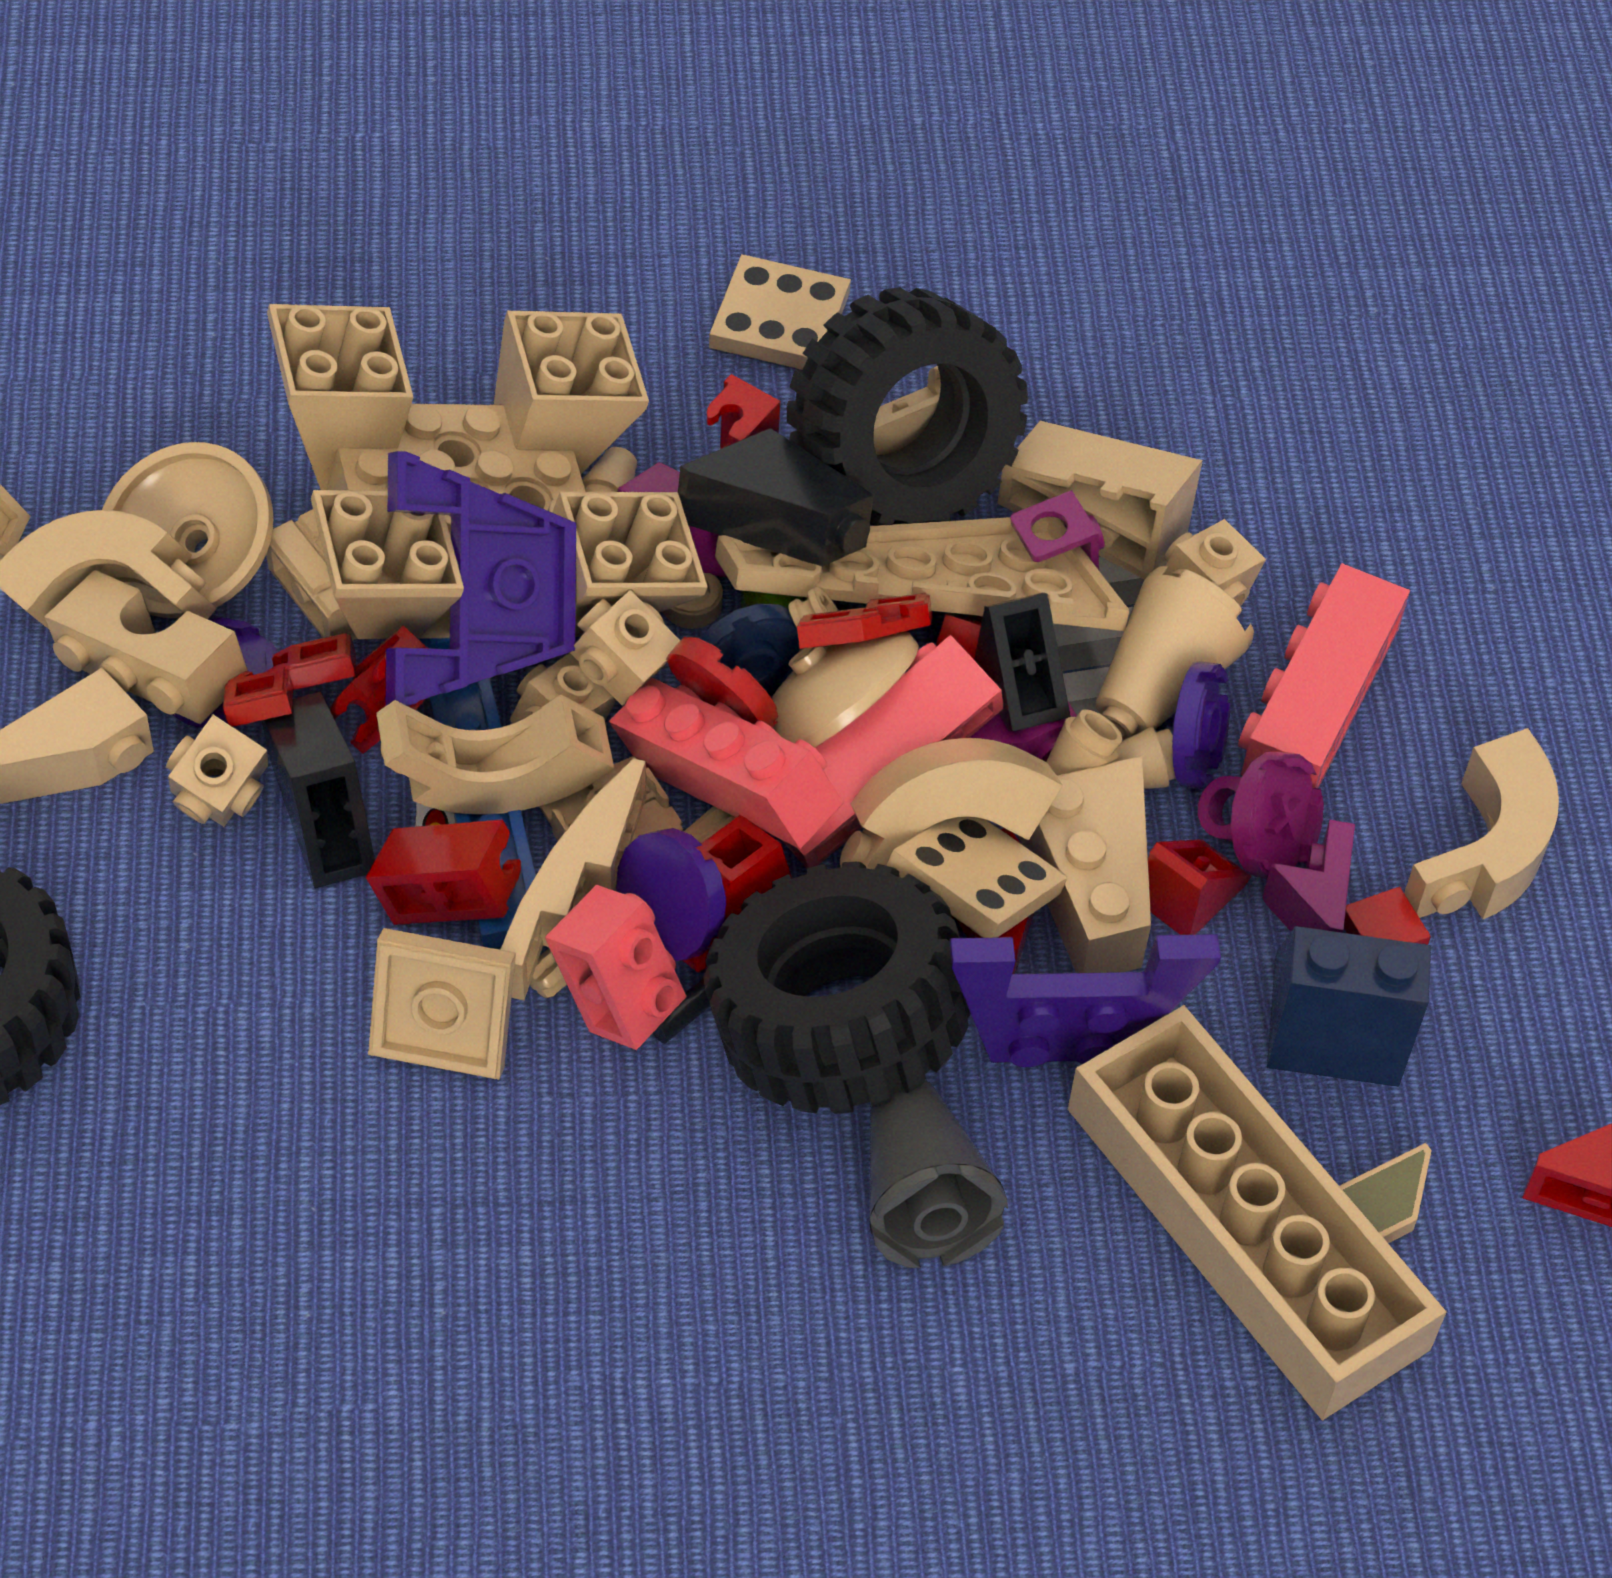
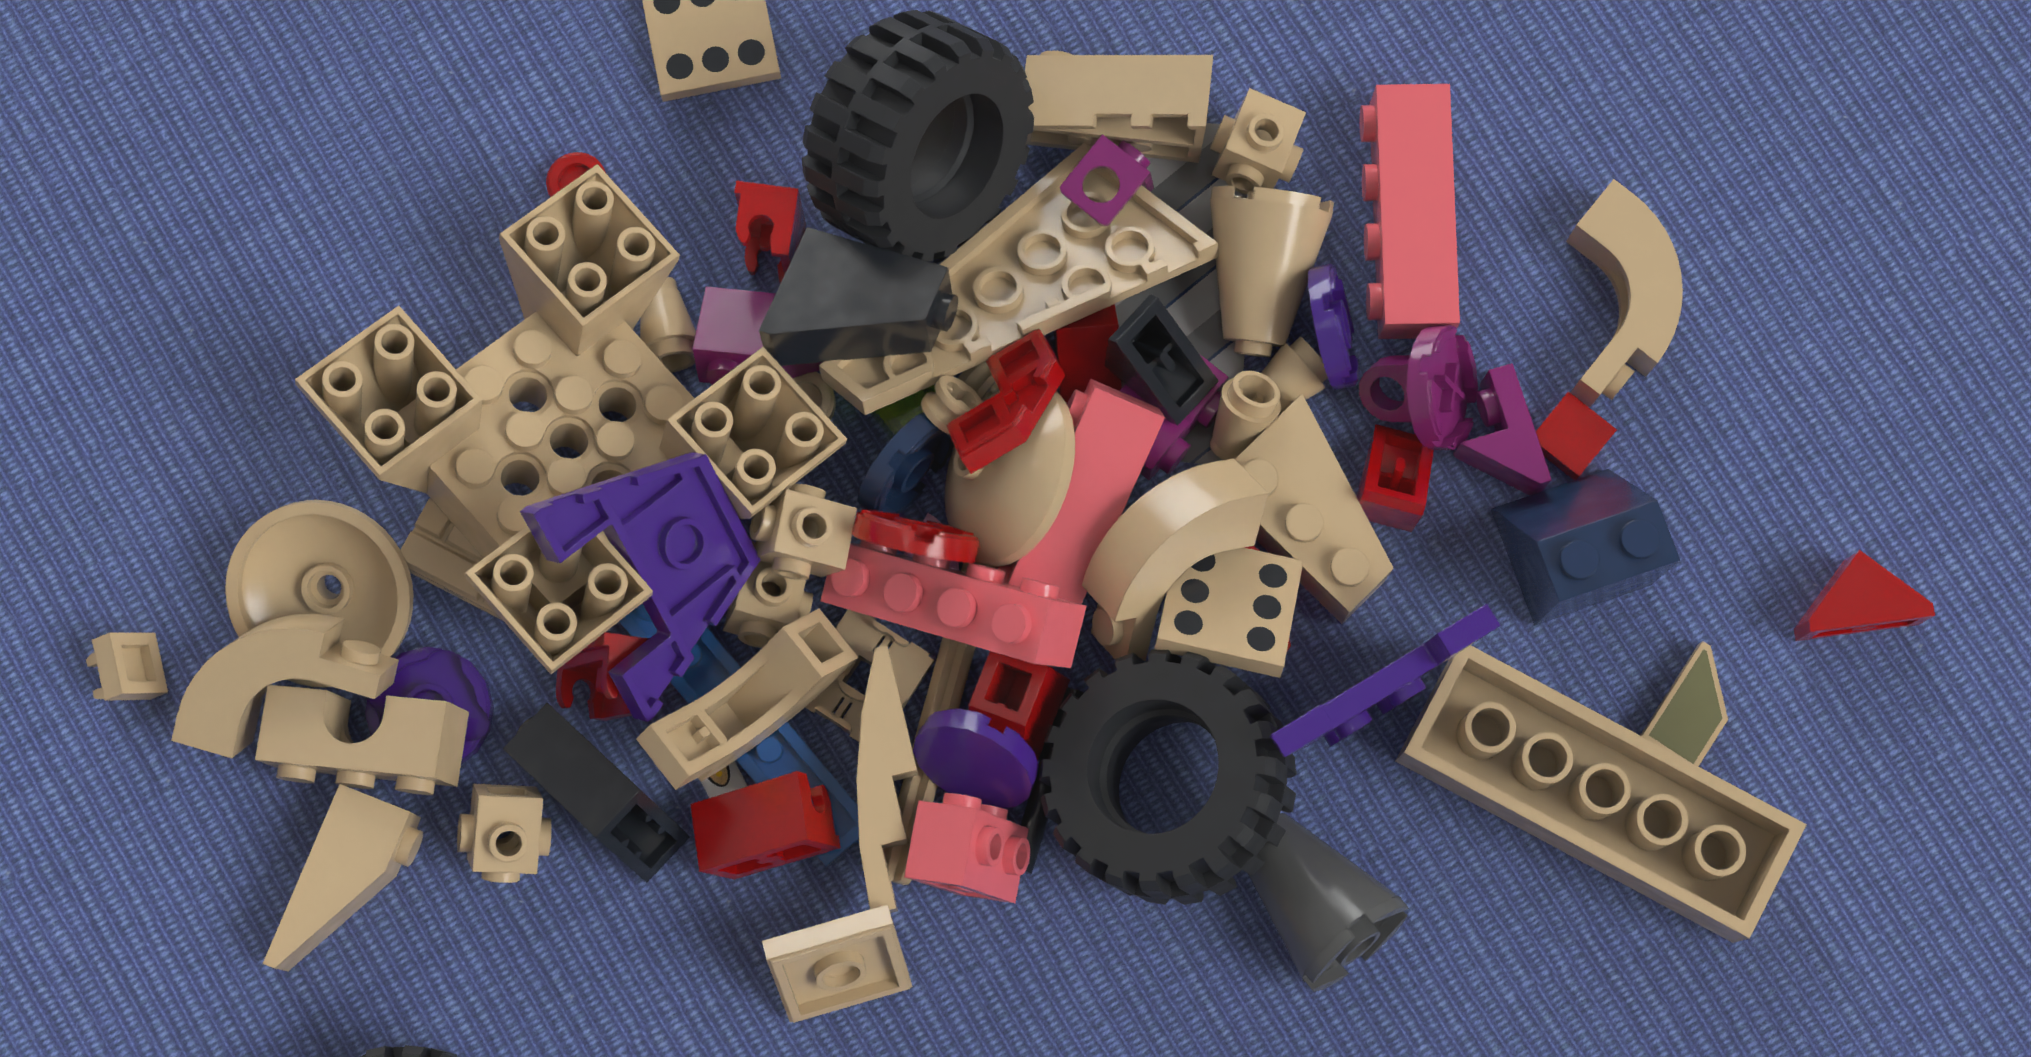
camera: 25 degrees left, 25 degrees up
(298, 666) = (497, 732): red tile -> none

